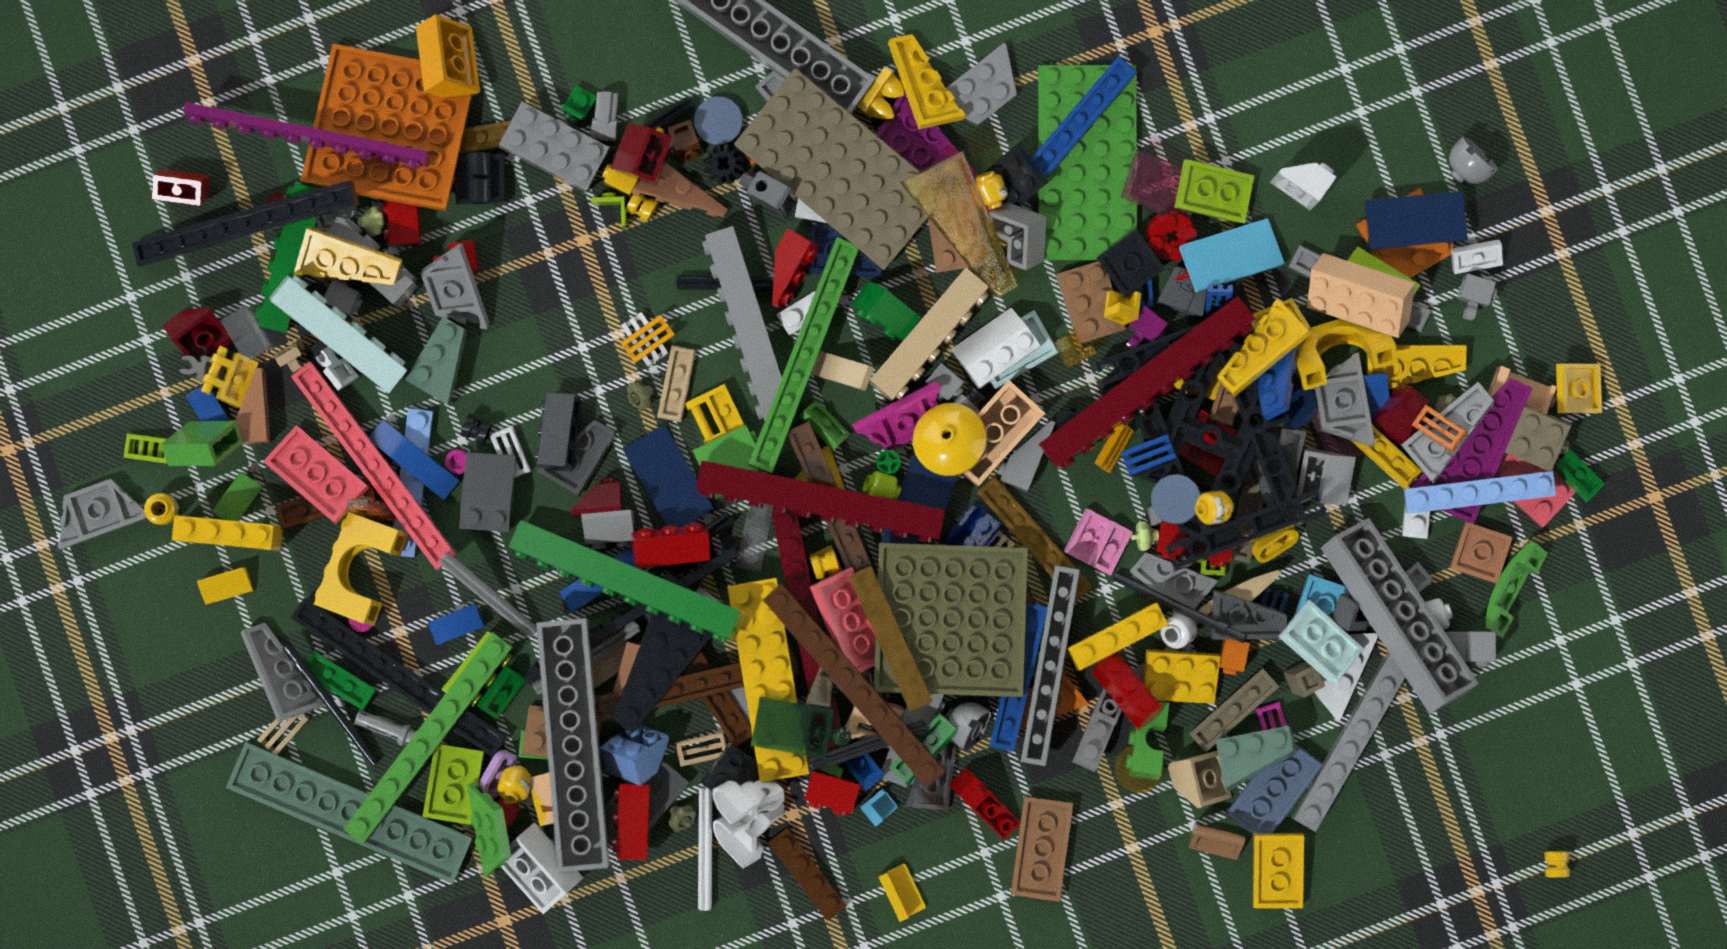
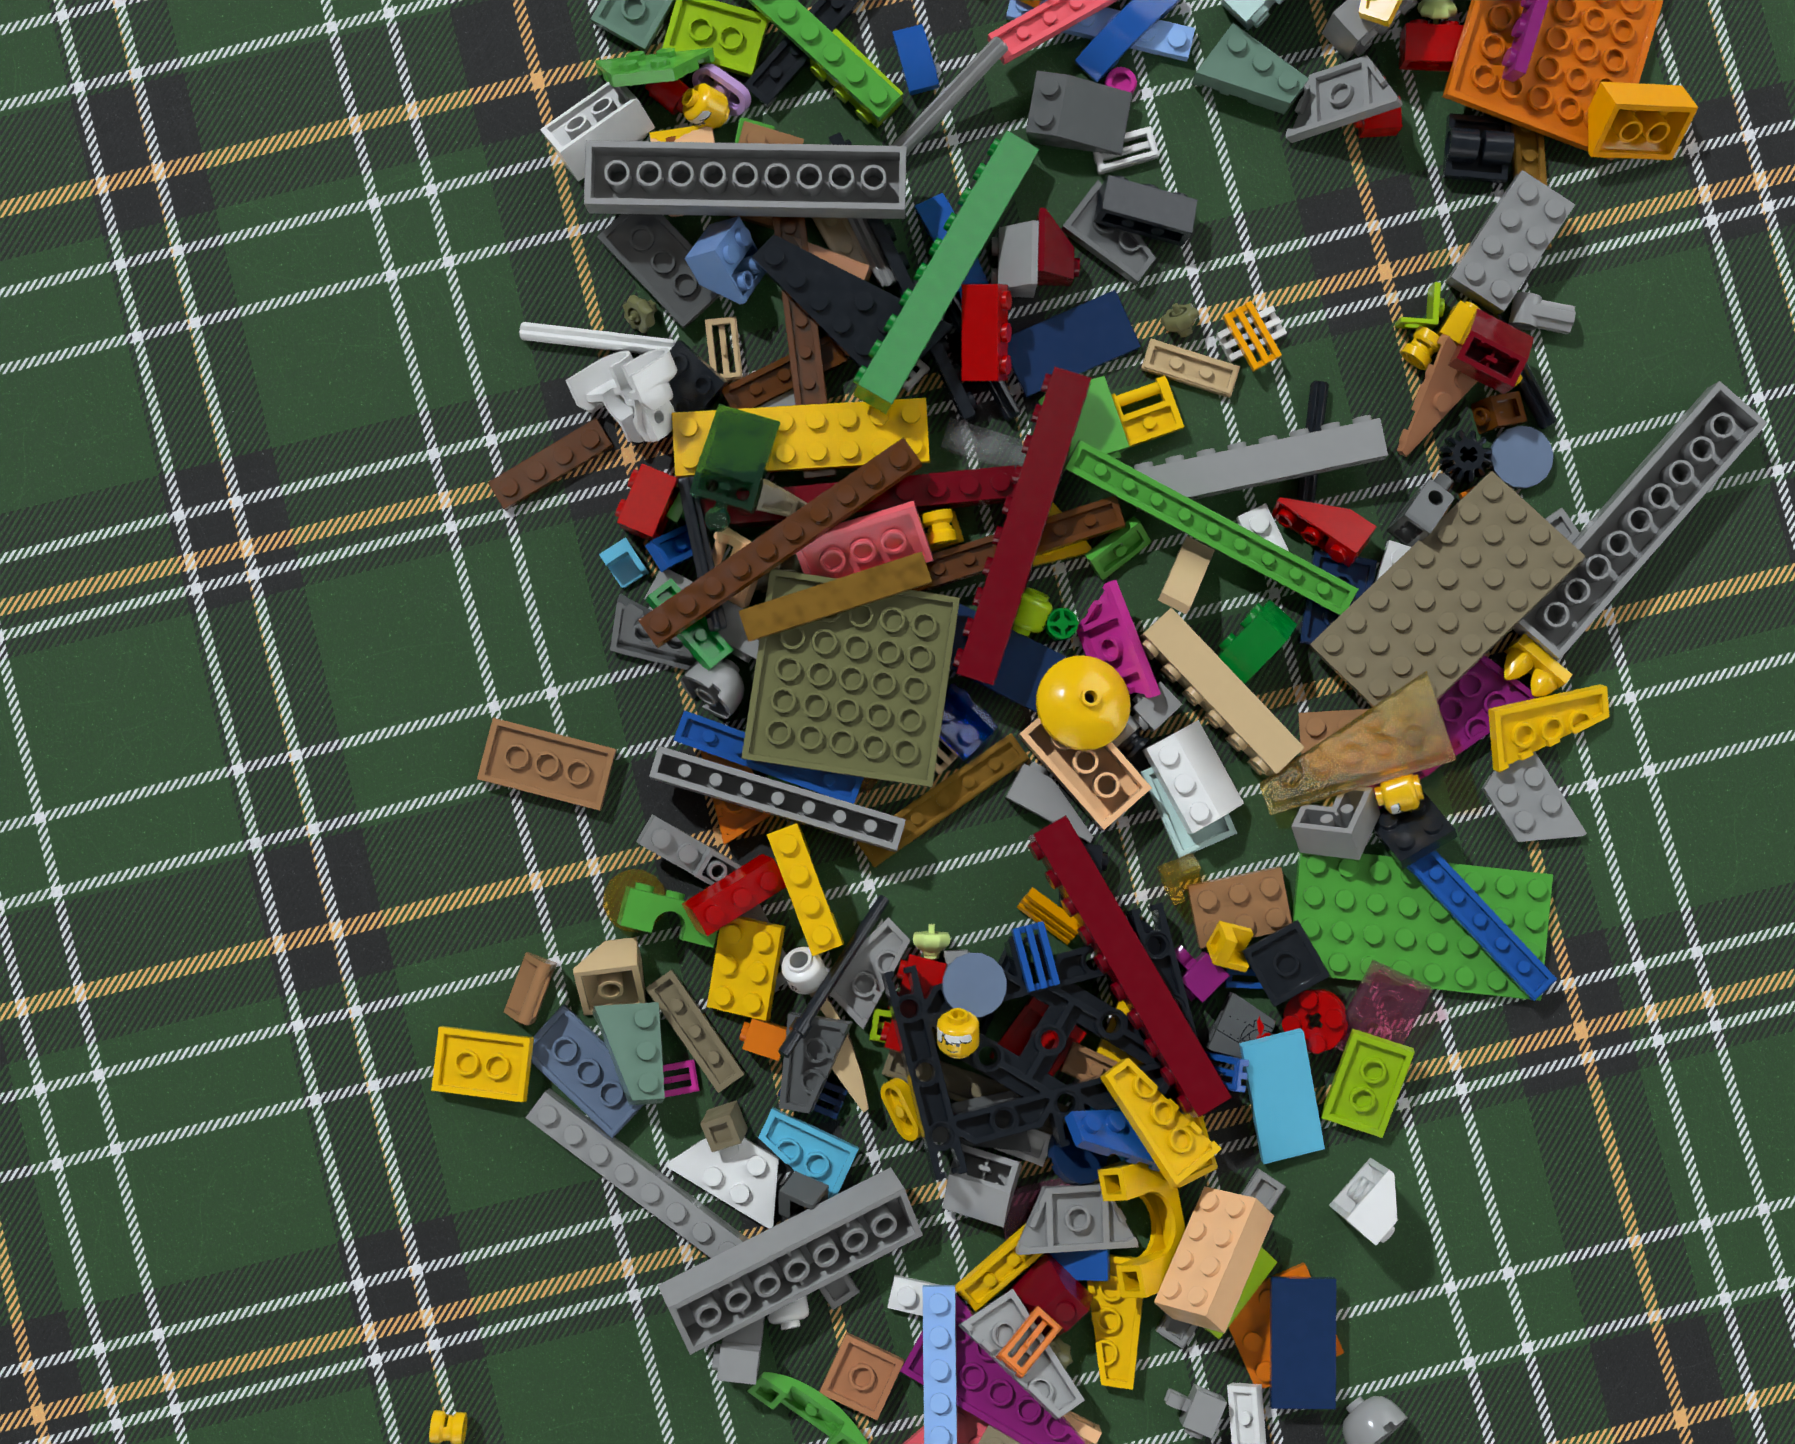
camera: 90 degrees right, 0 degrees up
(476, 429) = (1160, 108): black wheel -> none
(501, 692) = (823, 104): green plate -> none
(578, 105) = (1558, 282): green bracket -> none
(632, 821) = (640, 247): red brick -> none
(902, 892) = (513, 580): yellow panel -> none
(984, 803) = (613, 697): red slope -> none
(1098, 541) = (930, 881): bright pink slope -> none
(1321, 642) = (768, 1154): light aqua tile -> none

